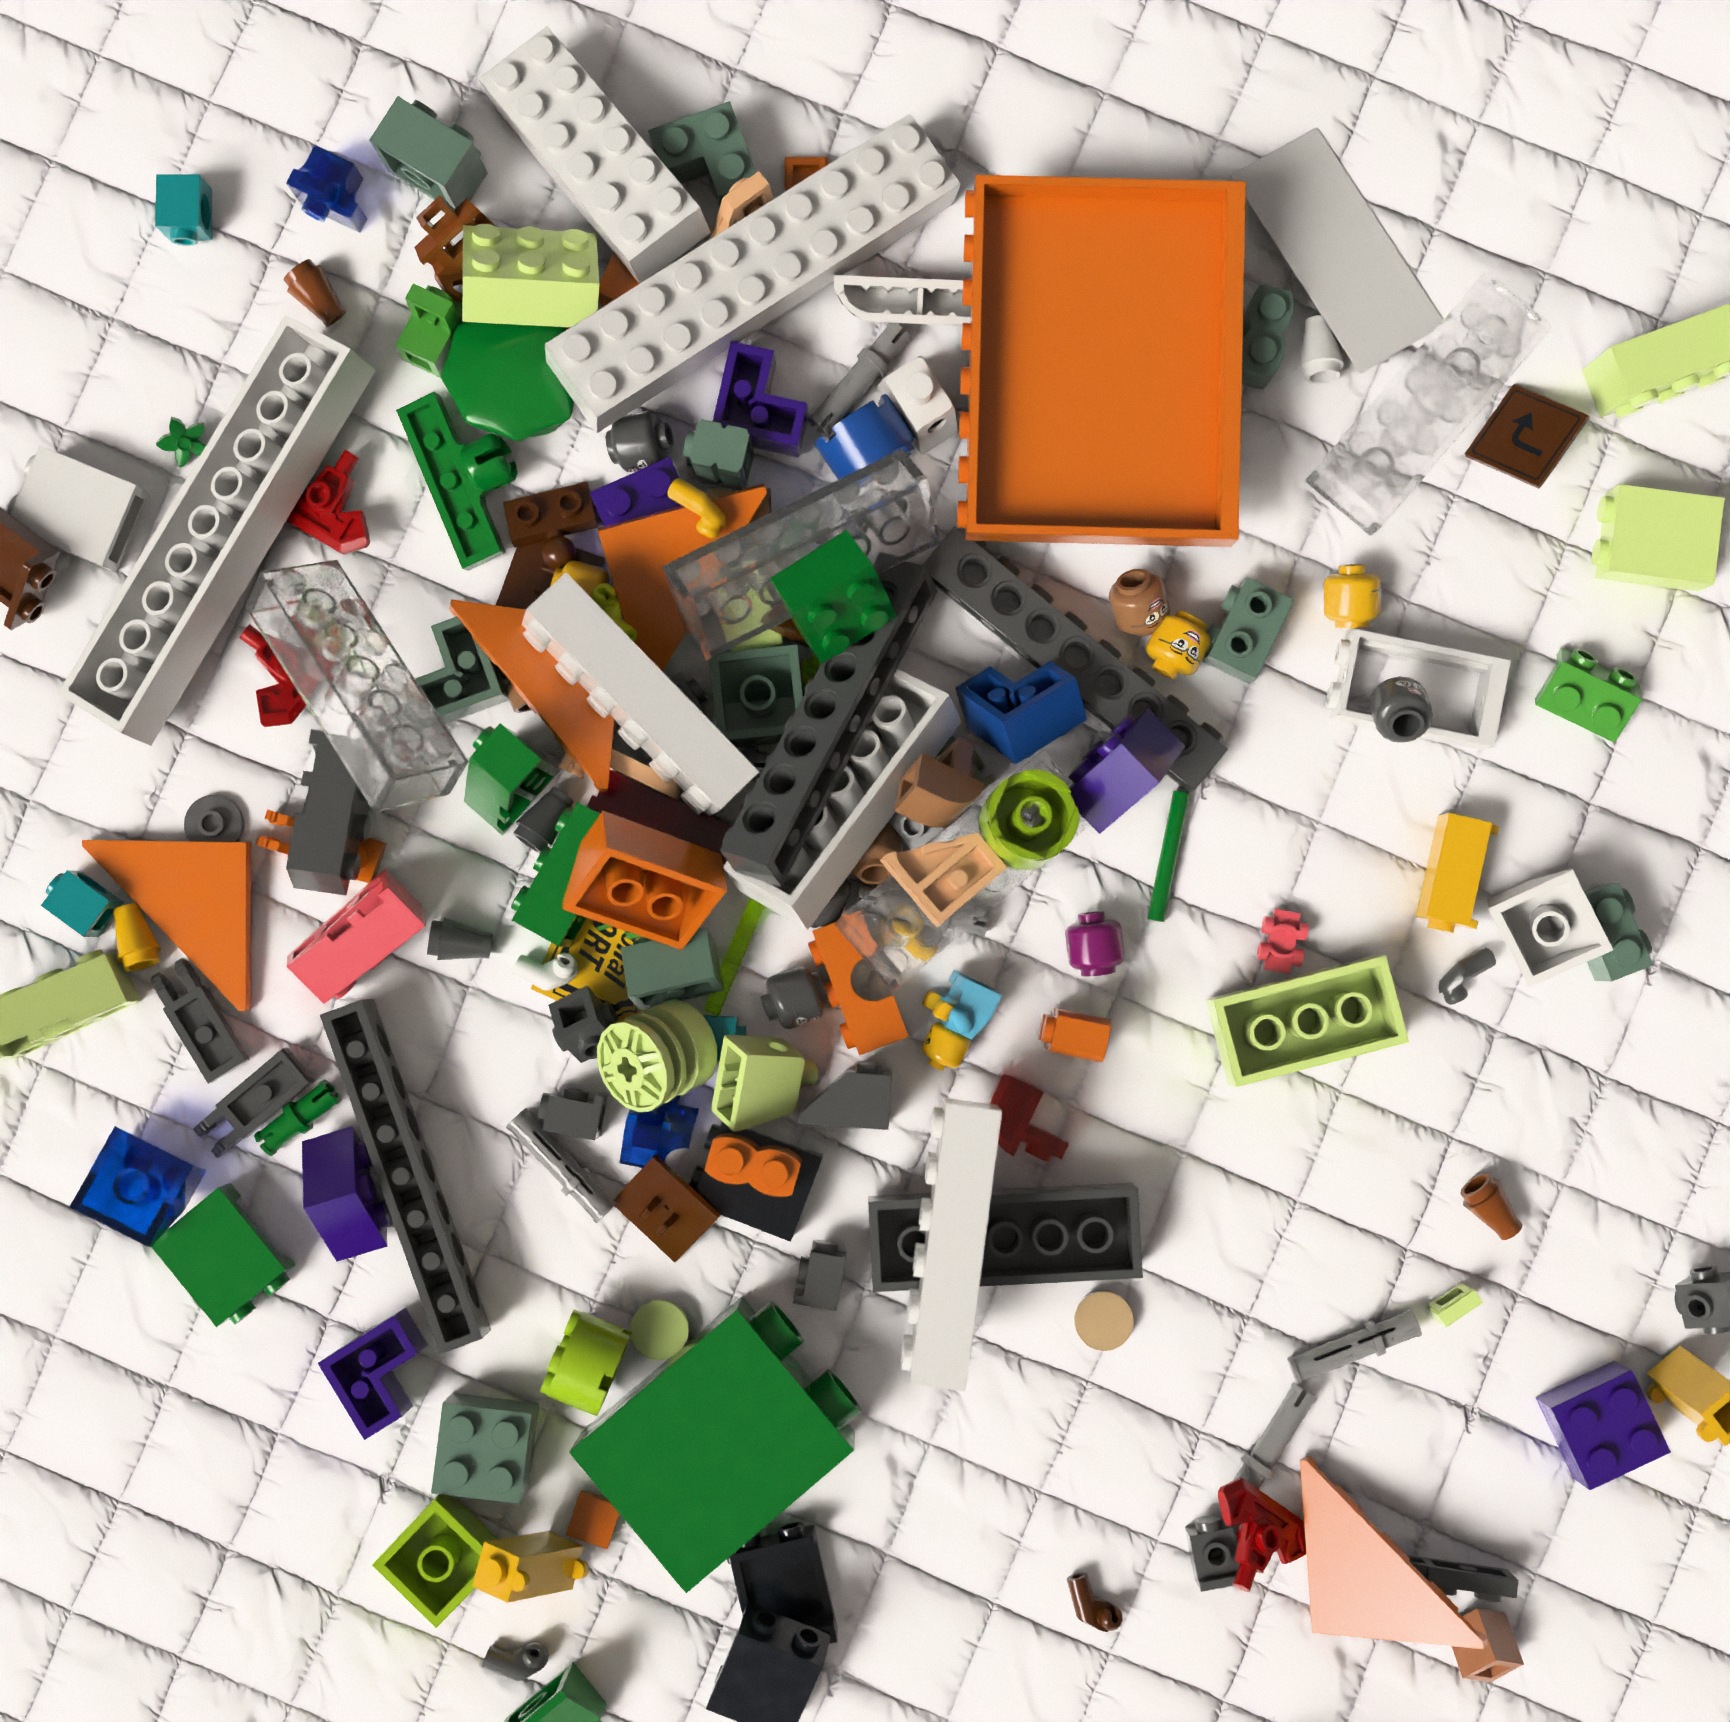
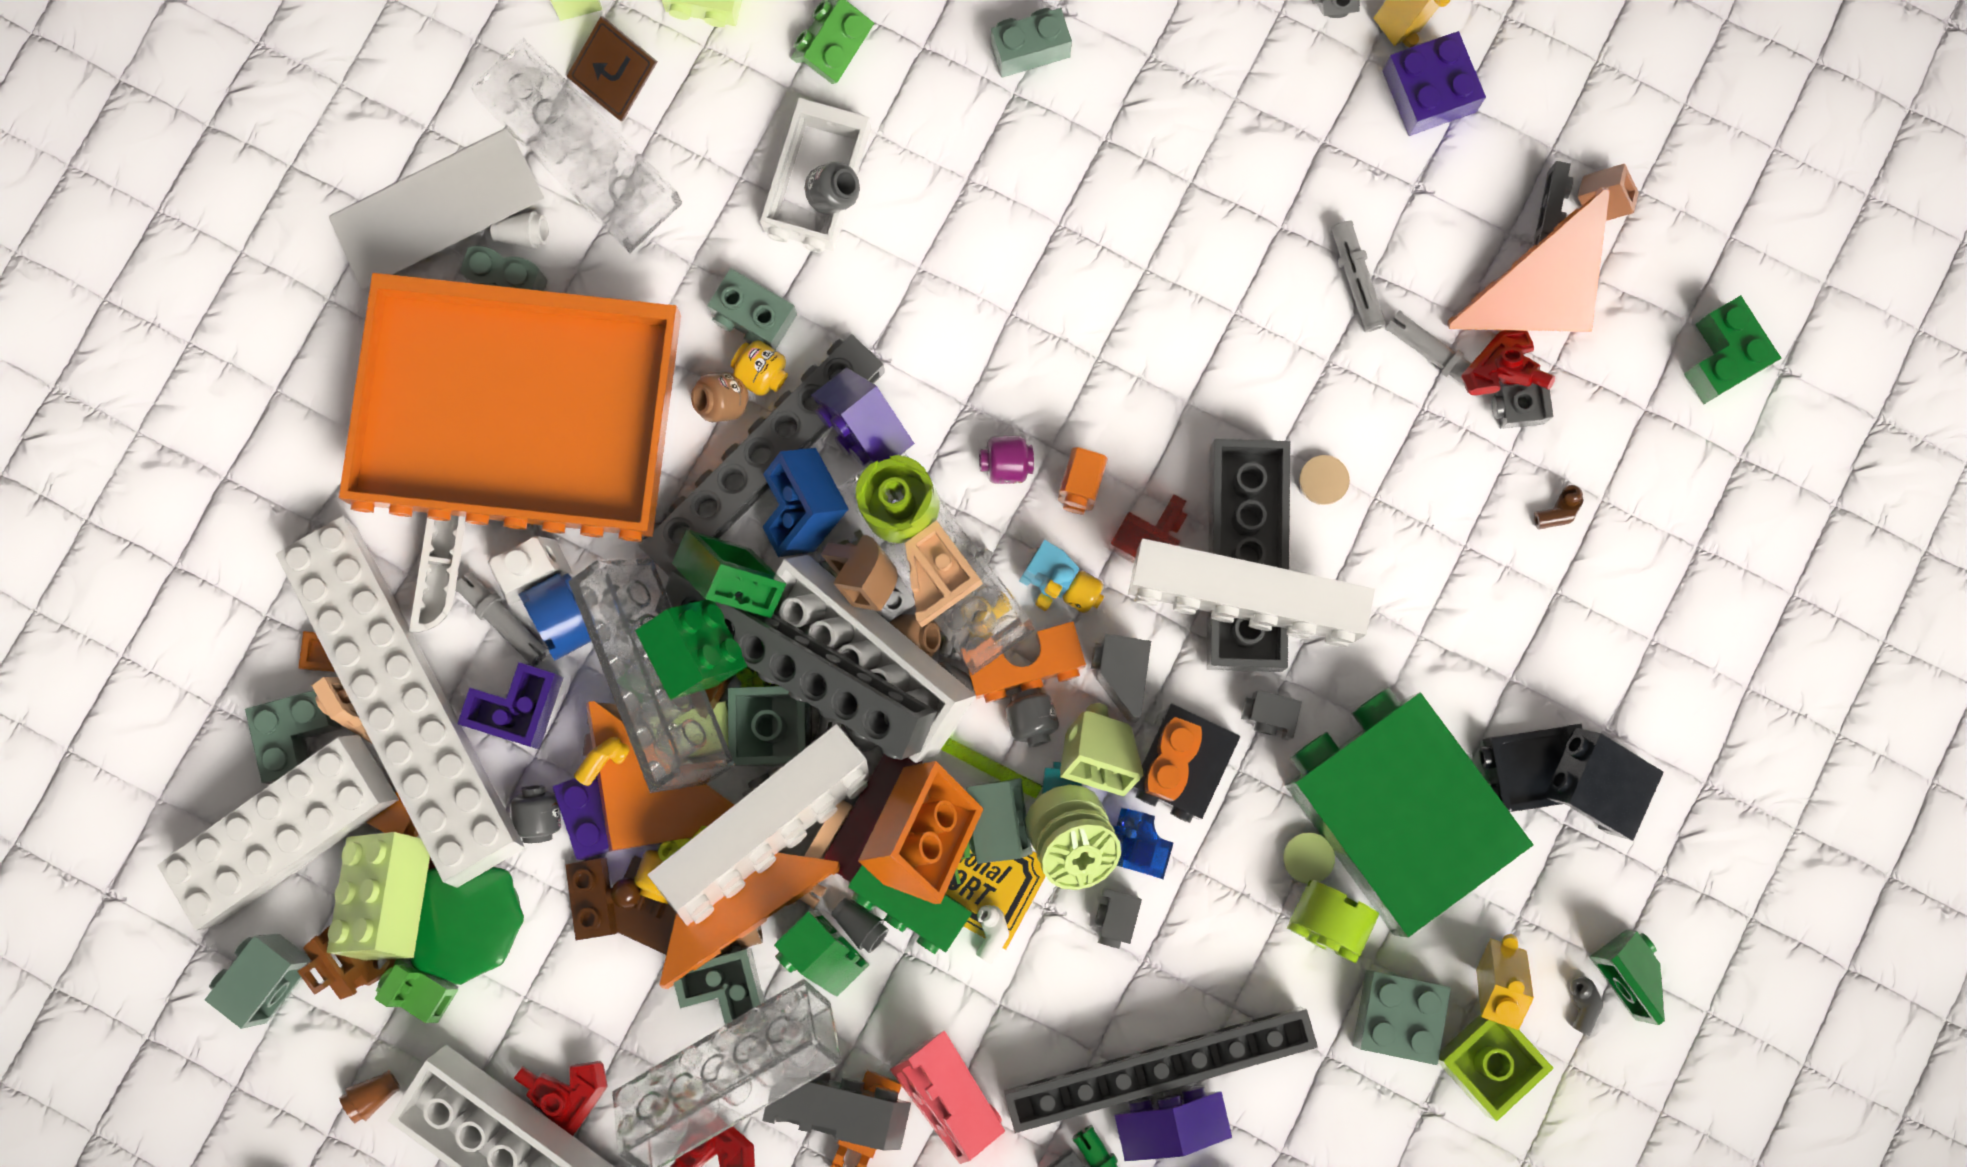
camera: 90 degrees left, 5 degrees down
(328, 189) = (277, 1077): clear blue brick -> none
(364, 1374) = (1329, 1119): dark purple brick -> none
(457, 941) = (959, 1009): dark grey cone -> none
(459, 477) = (549, 977): green plate -> none
(561, 1165) = (1162, 932): light grey pin -> none
(580, 1022) = (1040, 902): dark grey brick -> none
(593, 1519) = (1468, 927): orange tile -> none
(665, 1208) = (1205, 843): reddish brown piece -> none
(719, 454) = (554, 743): sand green brick -> none
(934, 628) = (724, 568): none -> green window
(1168, 856) = (937, 393): green piece -> none
(1280, 949) = (1024, 308): coral piece -> none
(1307, 1020) = (1085, 290): yellowish green brick -> none
(1352, 596) = (732, 222): yellow head -> none
(1454, 872) = (970, 160): yellow brick -> none
(1454, 1304) = (1328, 192): yellowish green tile -> none
(1465, 969) = (1053, 160): dark grey arm -> none
(1490, 1204) = (1248, 156): dark orange cone -> none
(1549, 925) = (1021, 86): white slope -> none

